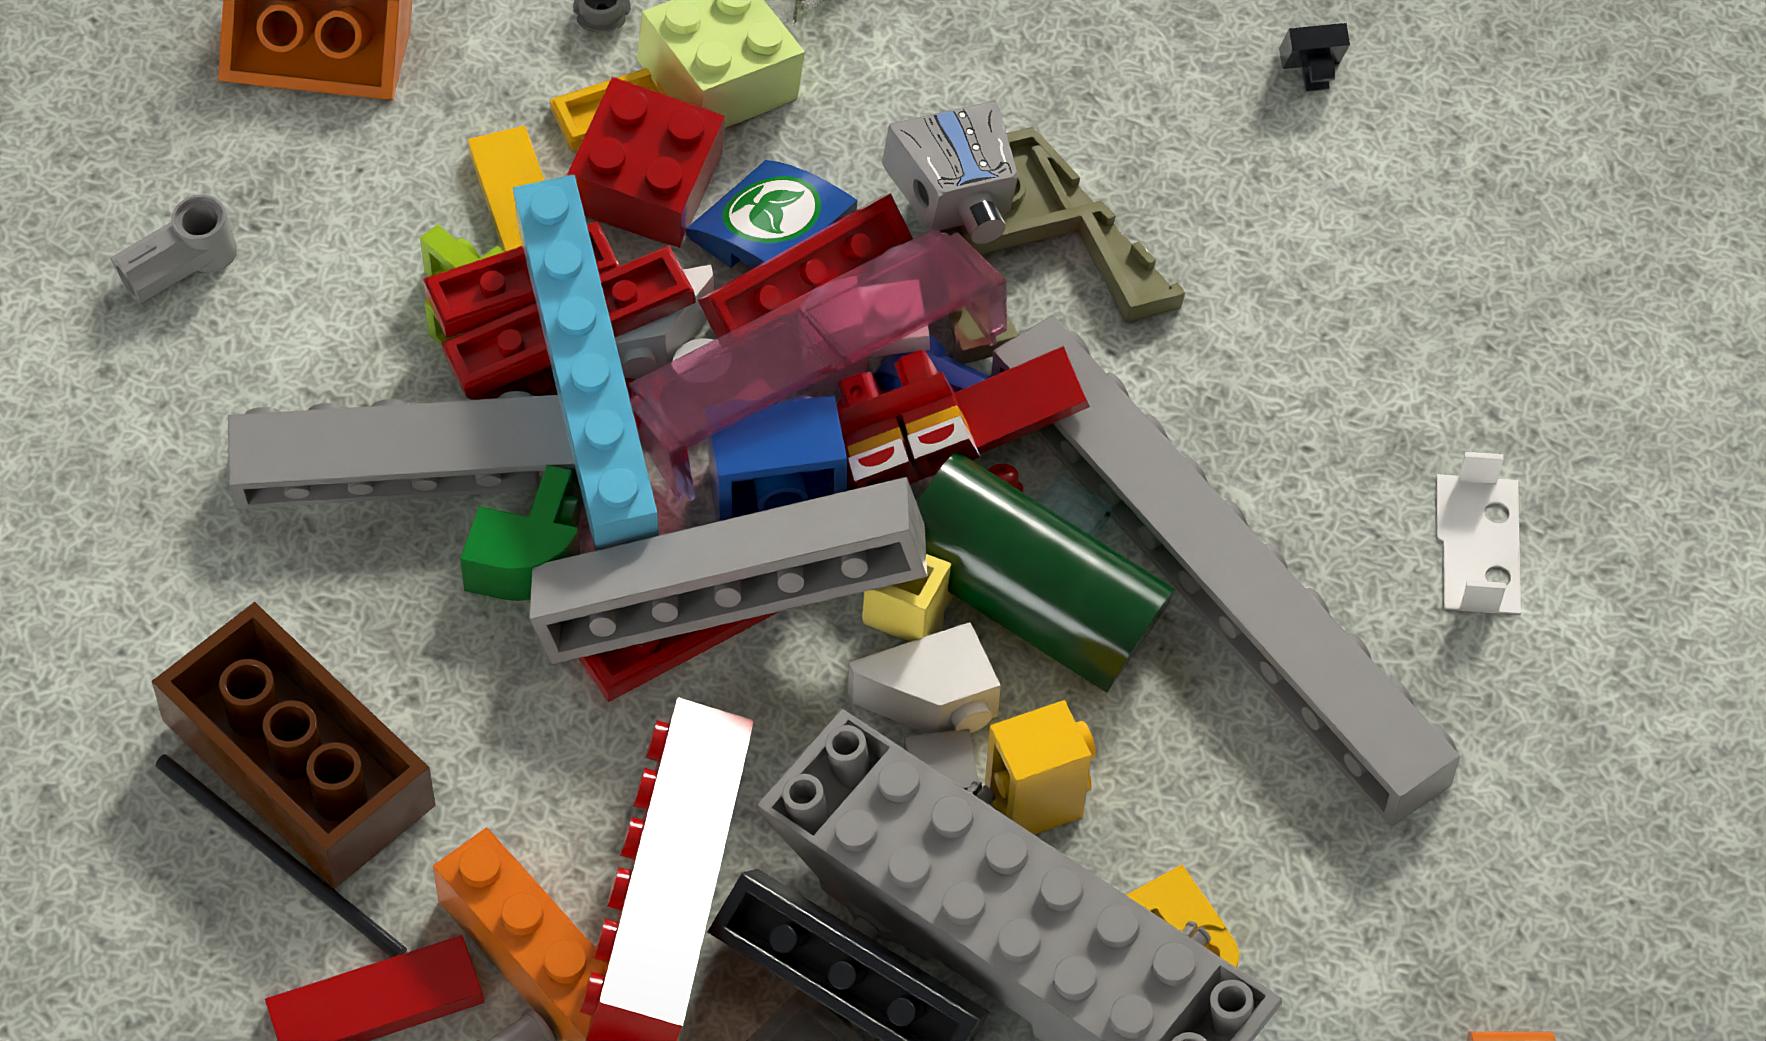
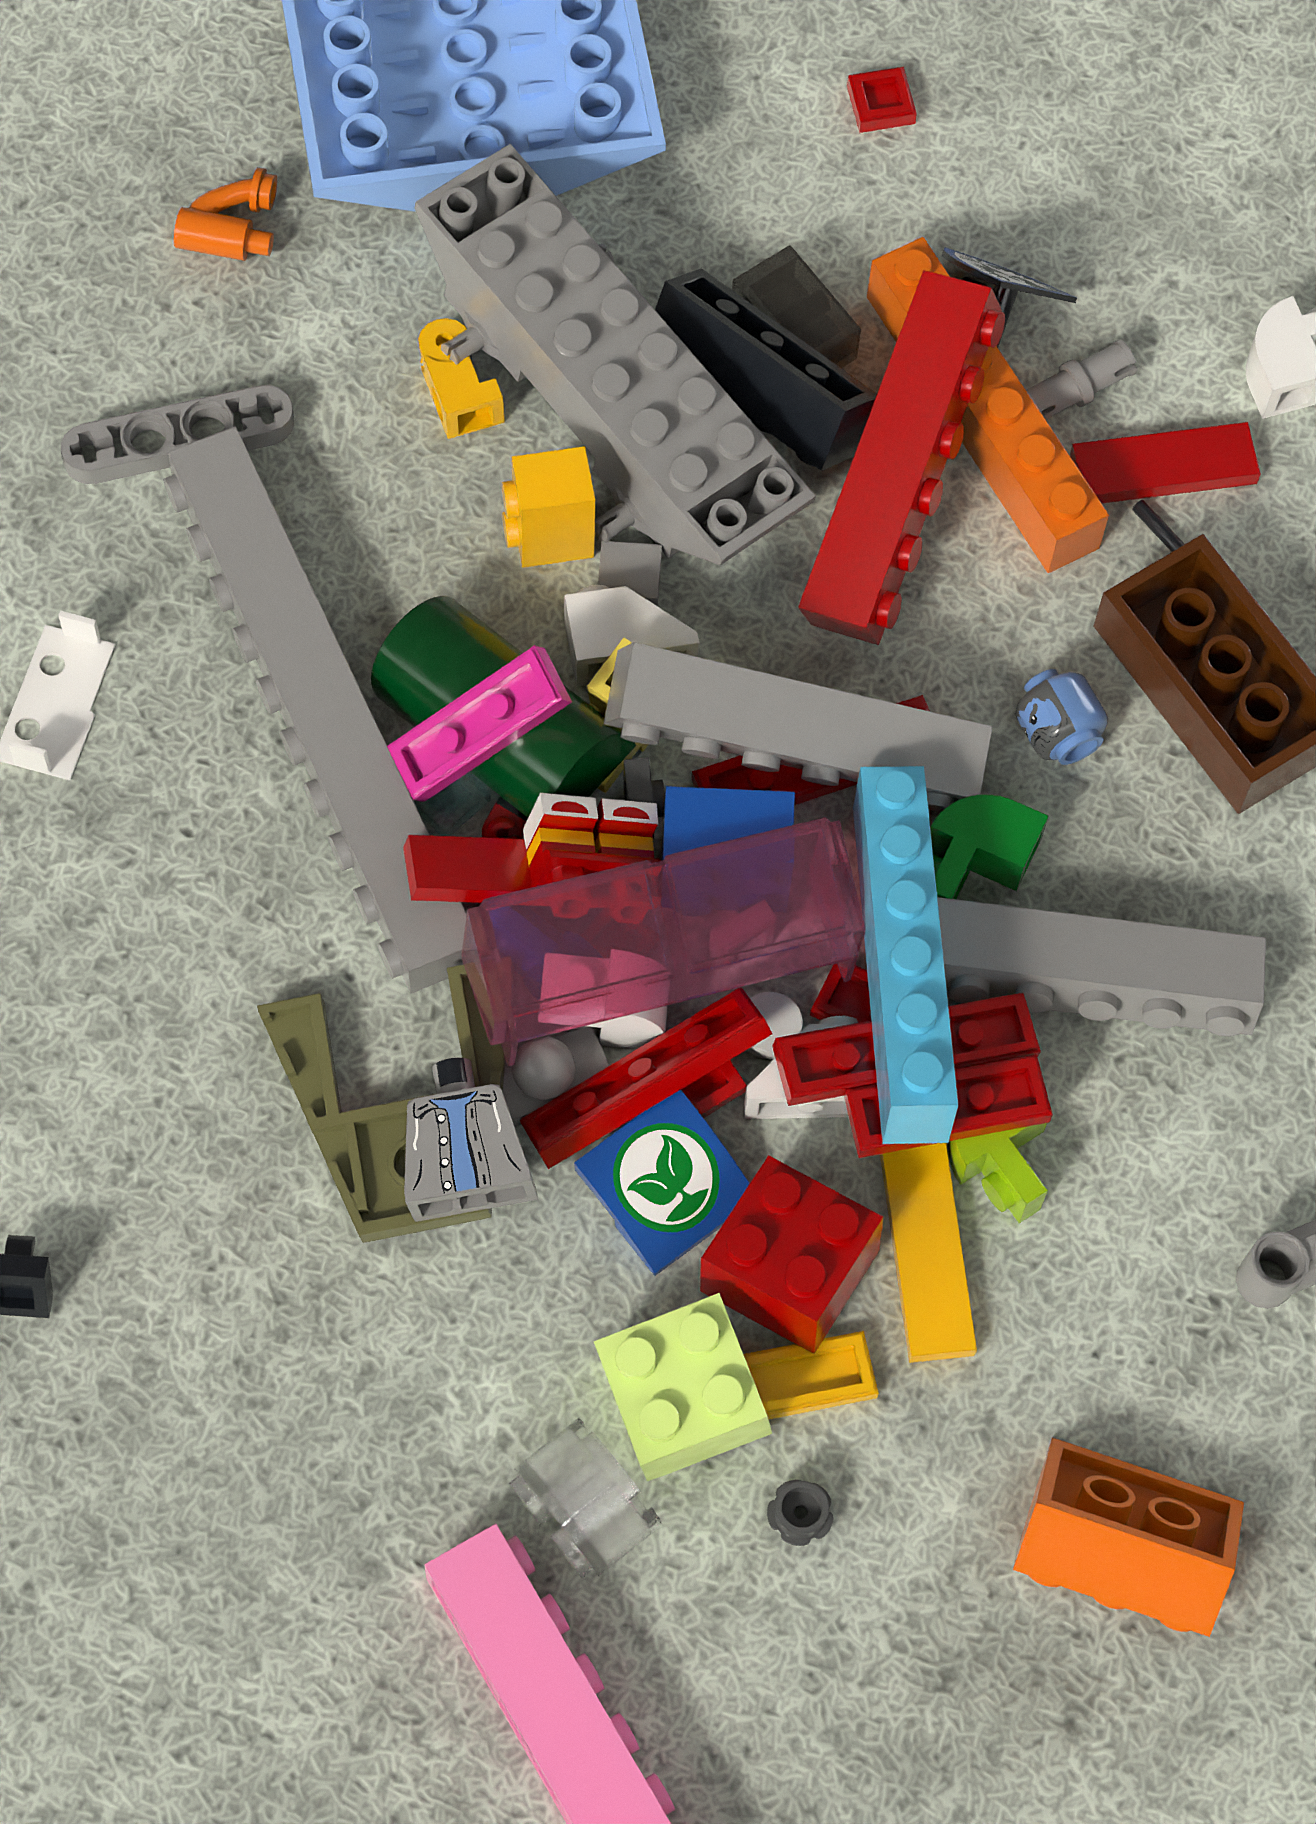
camera: 170 degrees left, 10 degrees up
(458, 685) = (1061, 716): none -> medium blue head
(1047, 503) = (479, 723): none -> dark pink tile
(1457, 816) = (175, 425): none -> light grey beam

